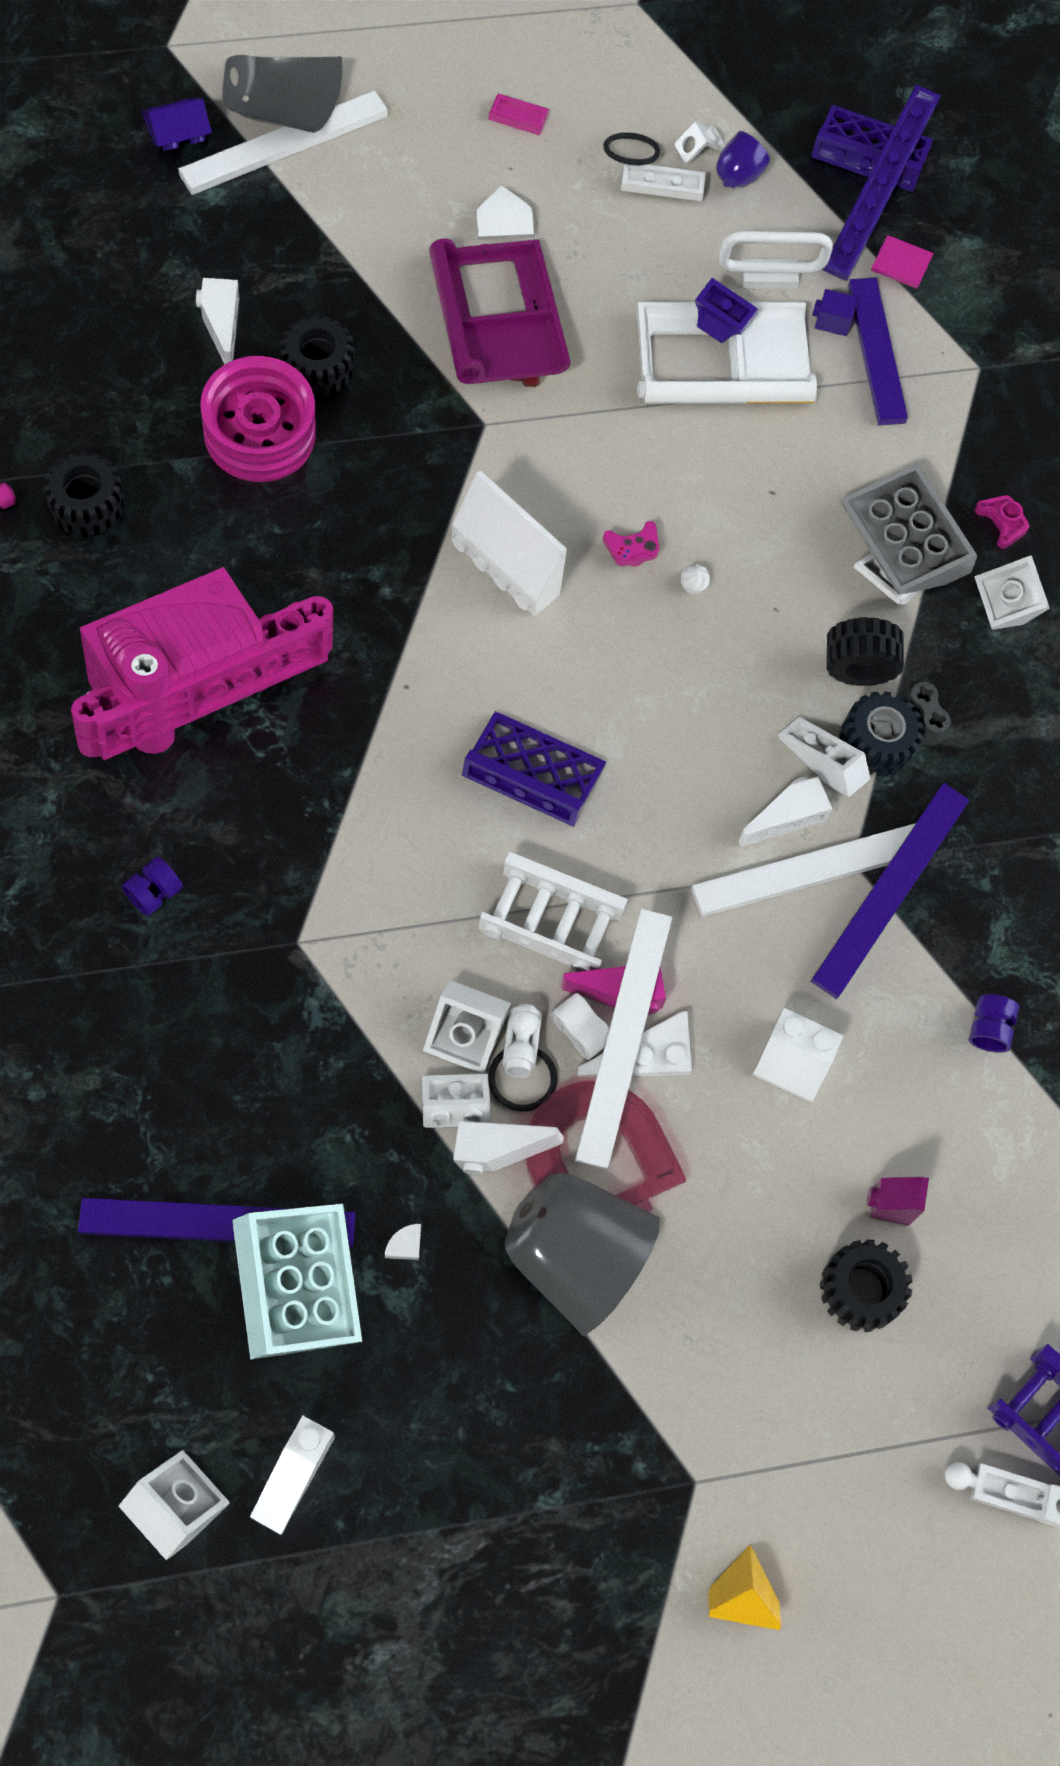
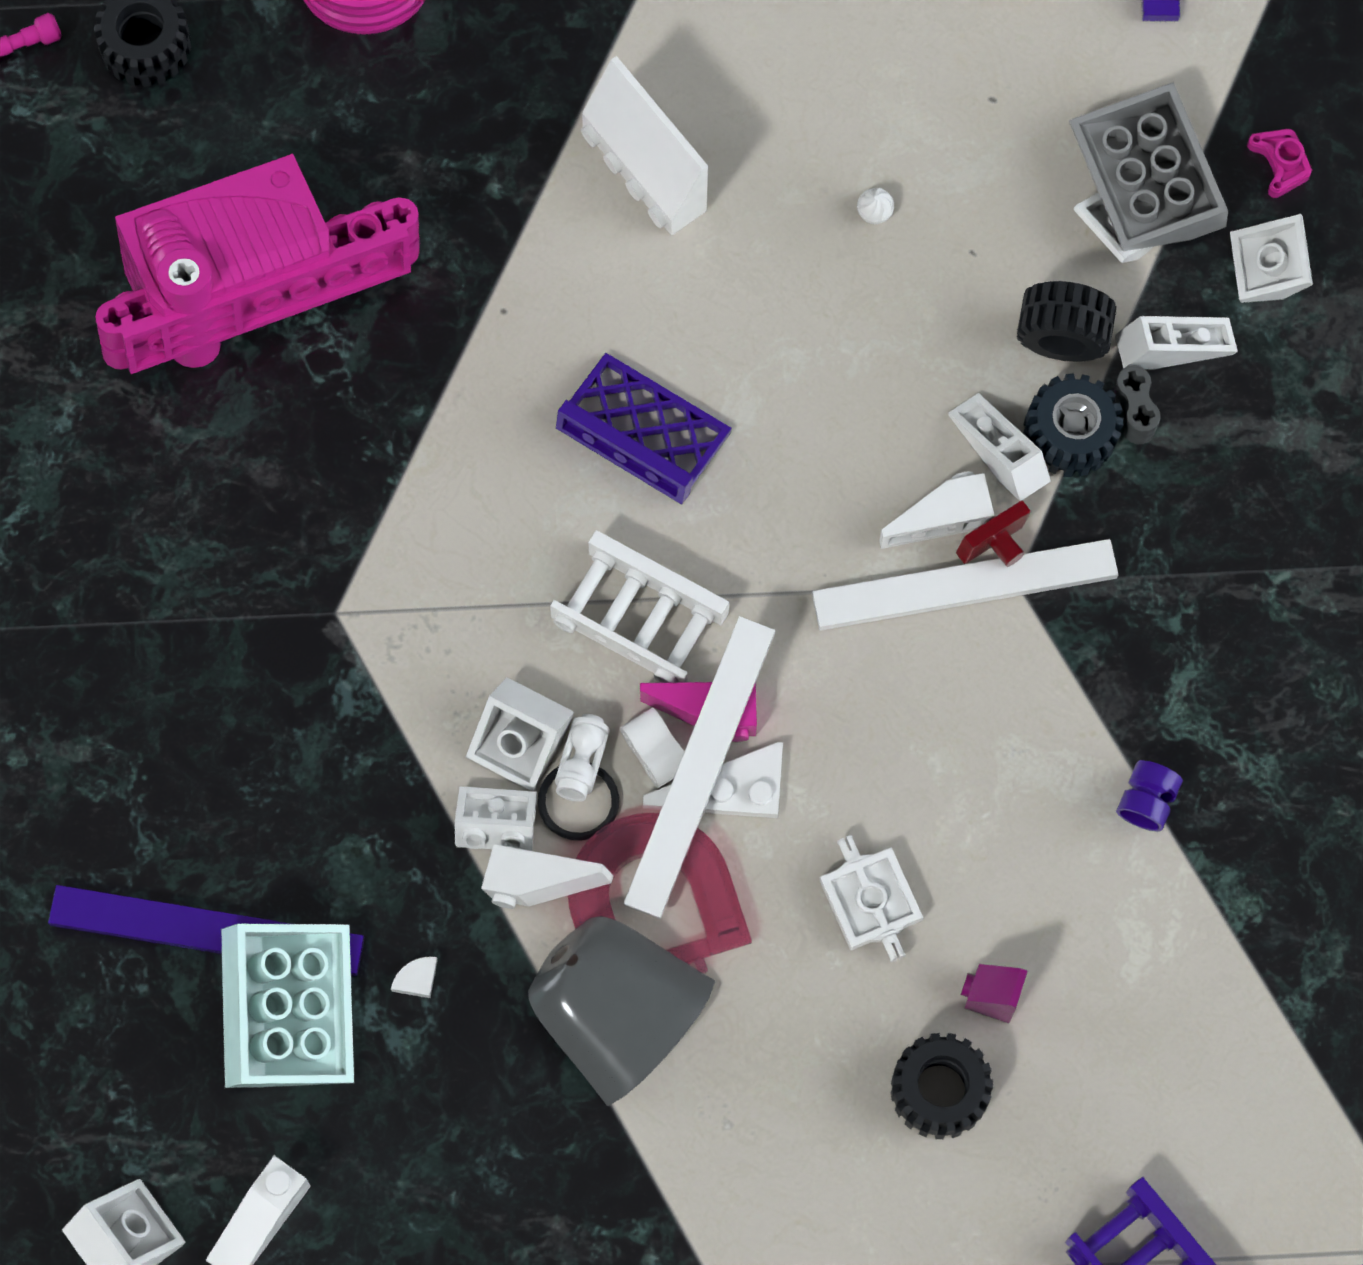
camera: 15 degrees right, 5 degrees up
(162, 881) = (183, 521): dark purple wheel -> none
(635, 548) = (804, 160): dark pink piece -> none
(780, 1133) = (871, 898): none -> white plate
(798, 1055) = (906, 809): white slope -> none
(836, 826) = (996, 535): none -> dark red tile
(889, 891) = (1052, 620): dark purple tile -> none
(947, 661) = (1172, 341): none -> white slope

